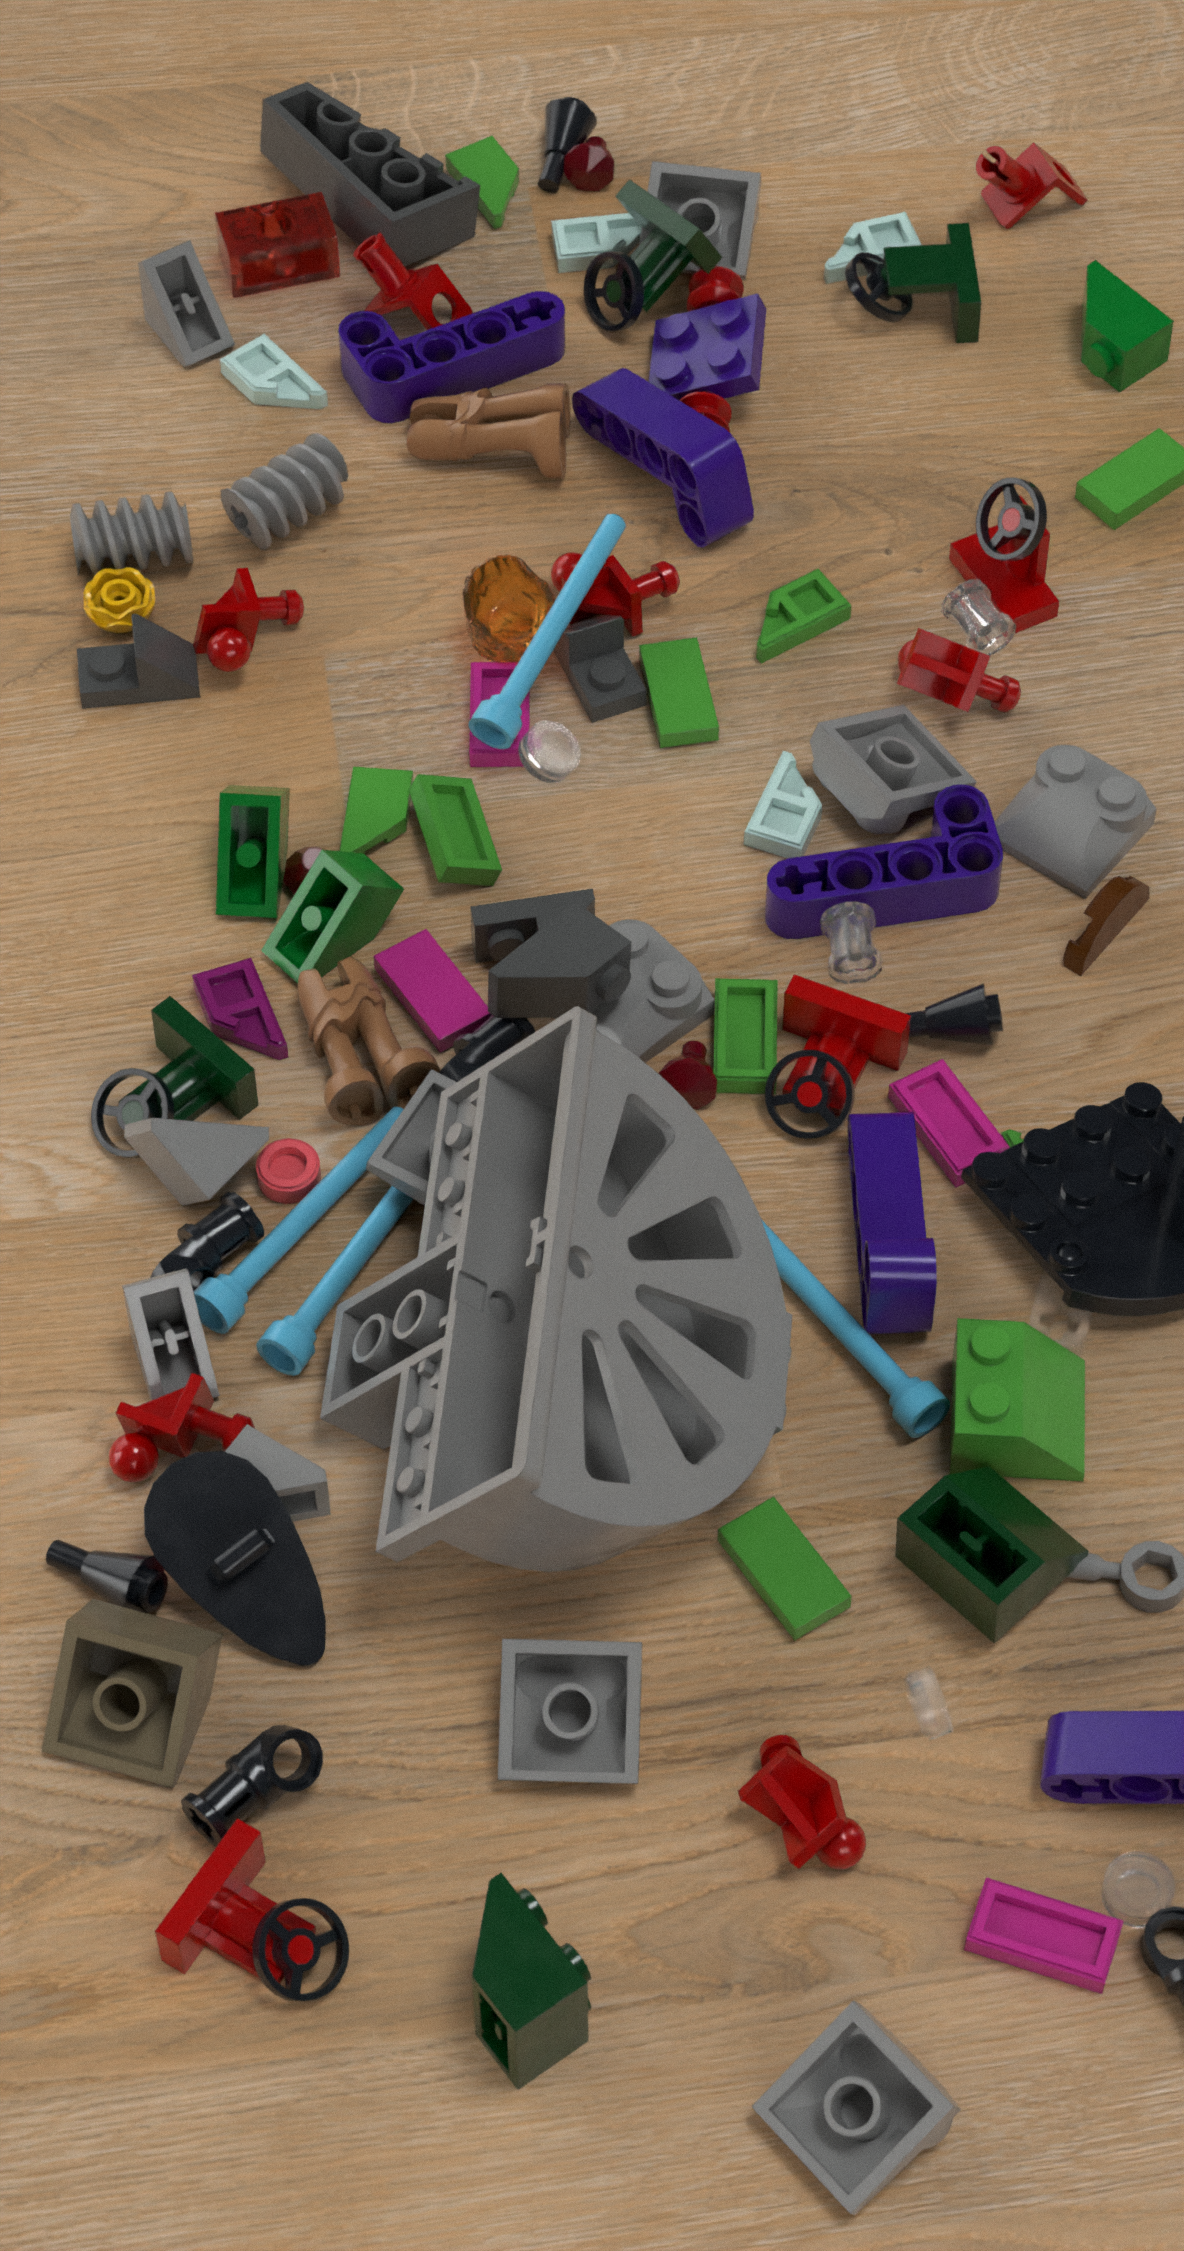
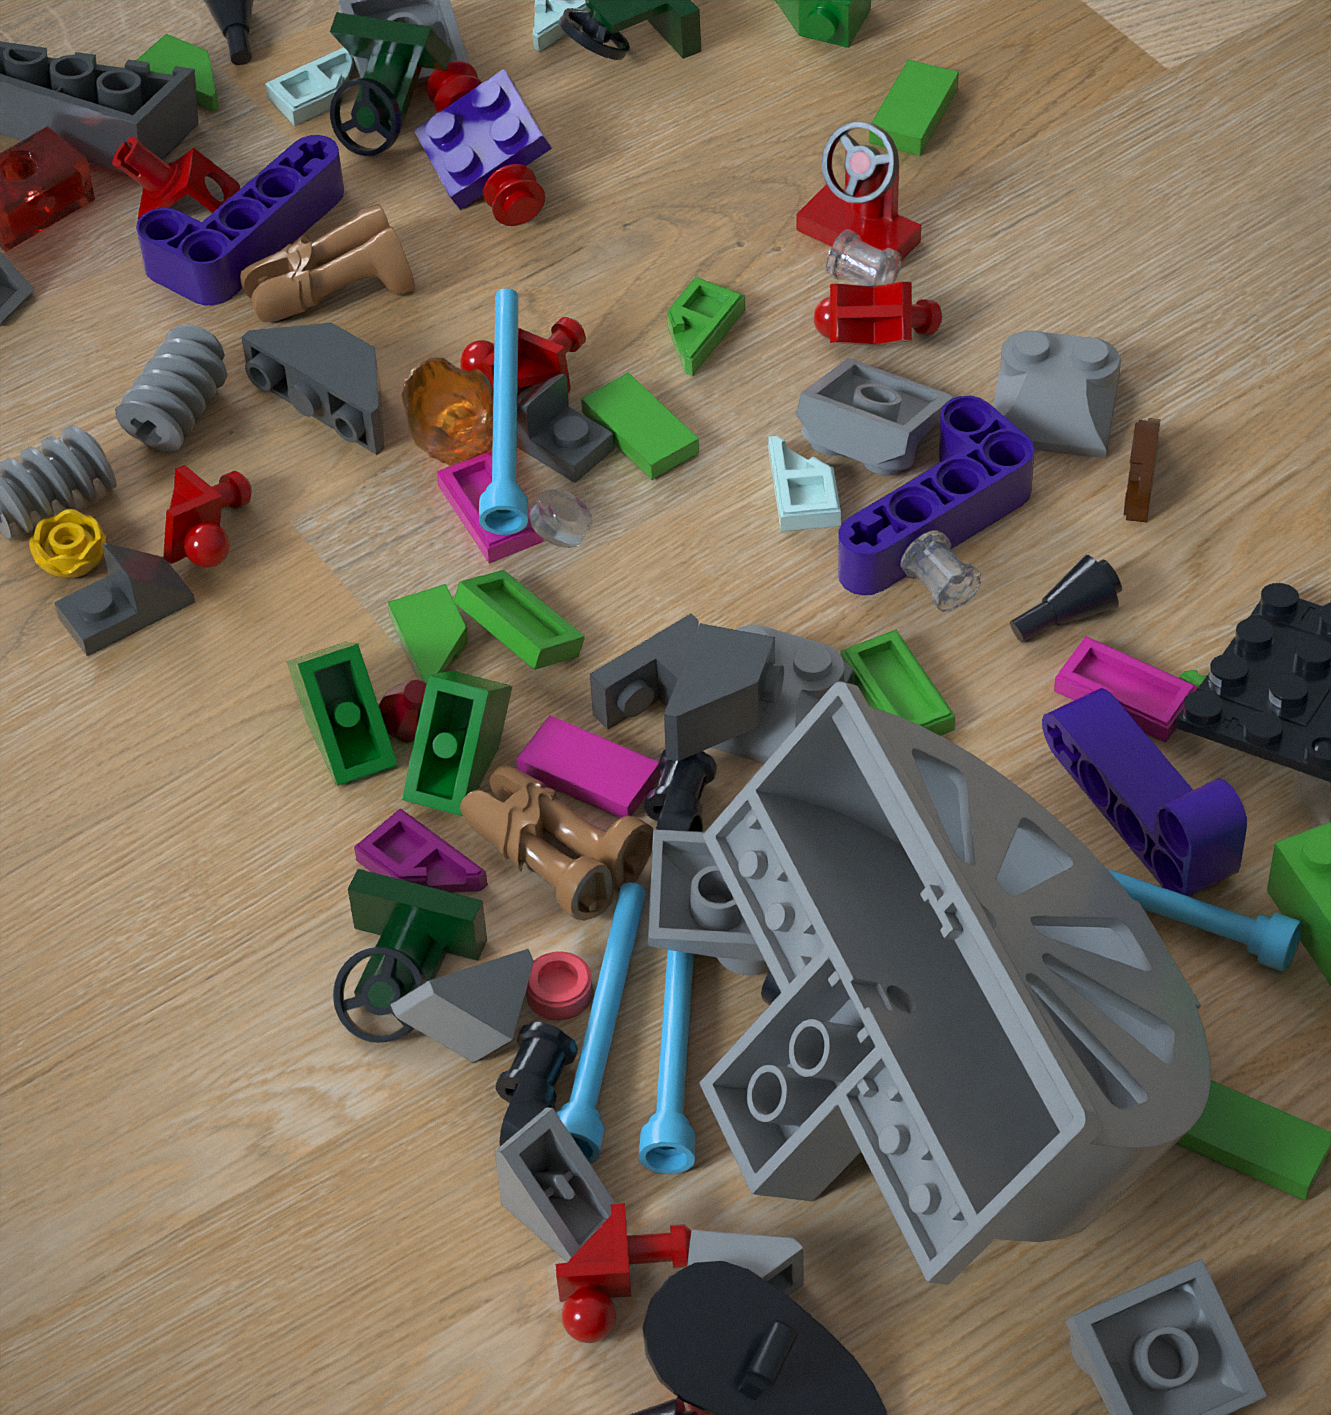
camera: 25 degrees left, 5 degrees down
(271, 376) = (88, 303): light aqua tile -> none
(424, 531) = (322, 376): none -> dark grey slope
(589, 165) = (271, 27): dark red rock -> none
(675, 447) = (507, 216): dark purple beam -> none
(842, 1039) = (985, 656): red piece -> none

